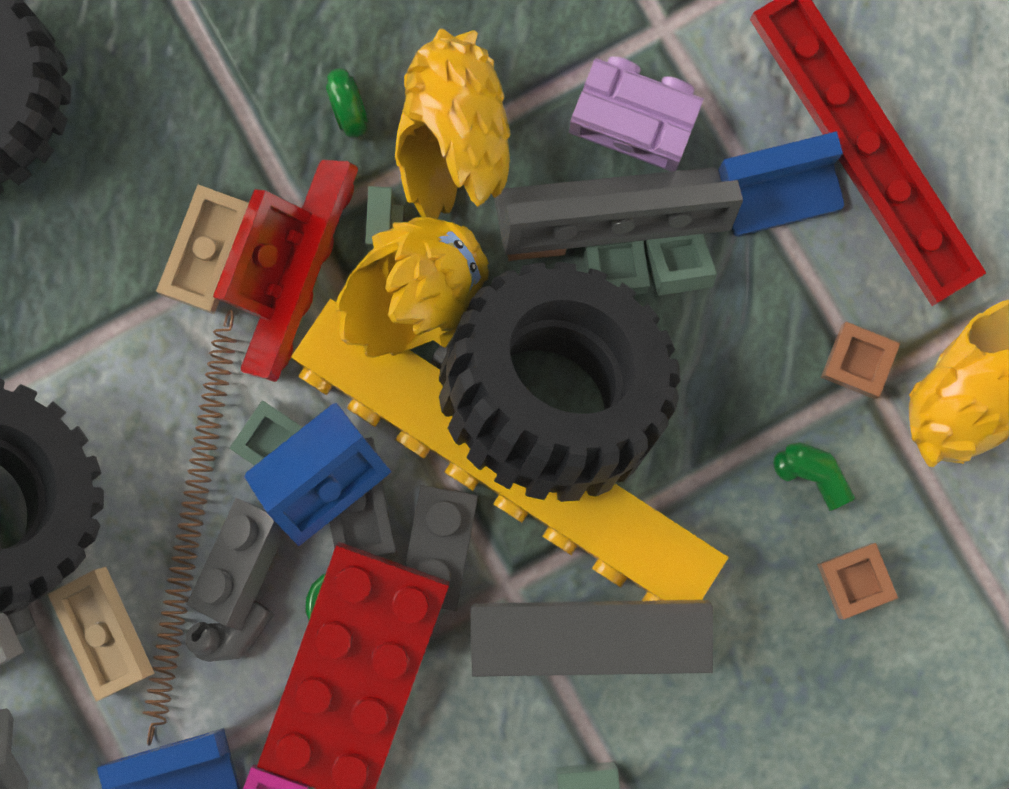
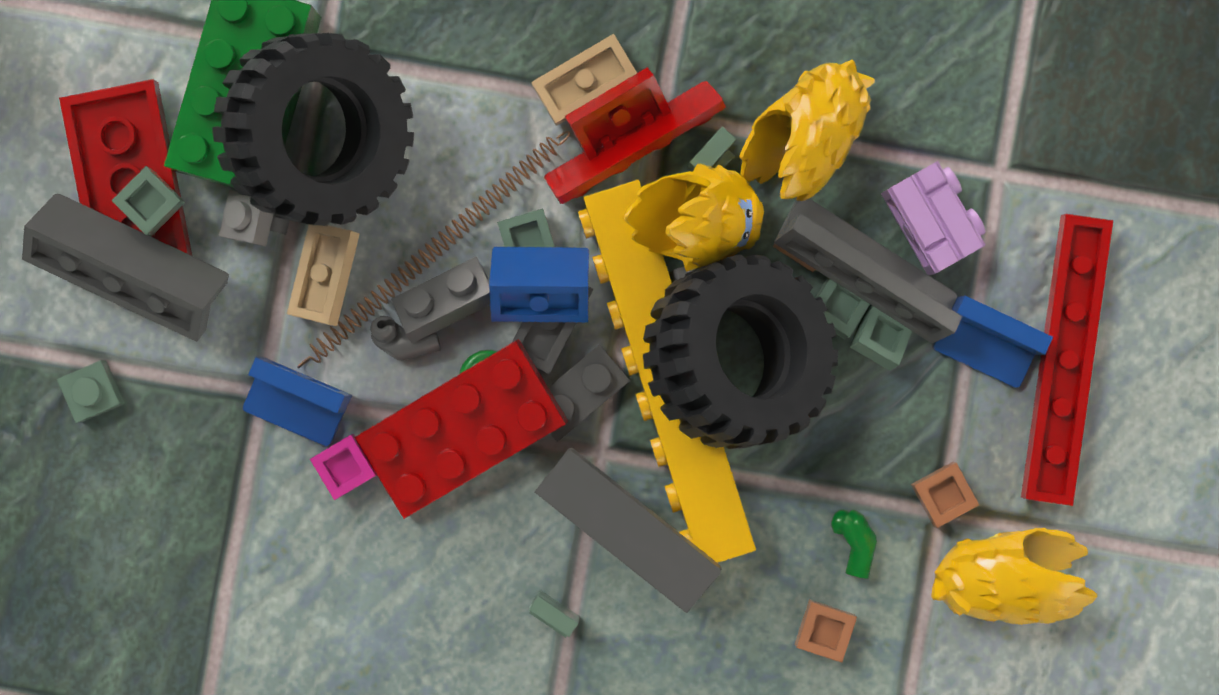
camera: 40 degrees right, 5 degrees up
(346, 103) = (752, 57): green piece -> none

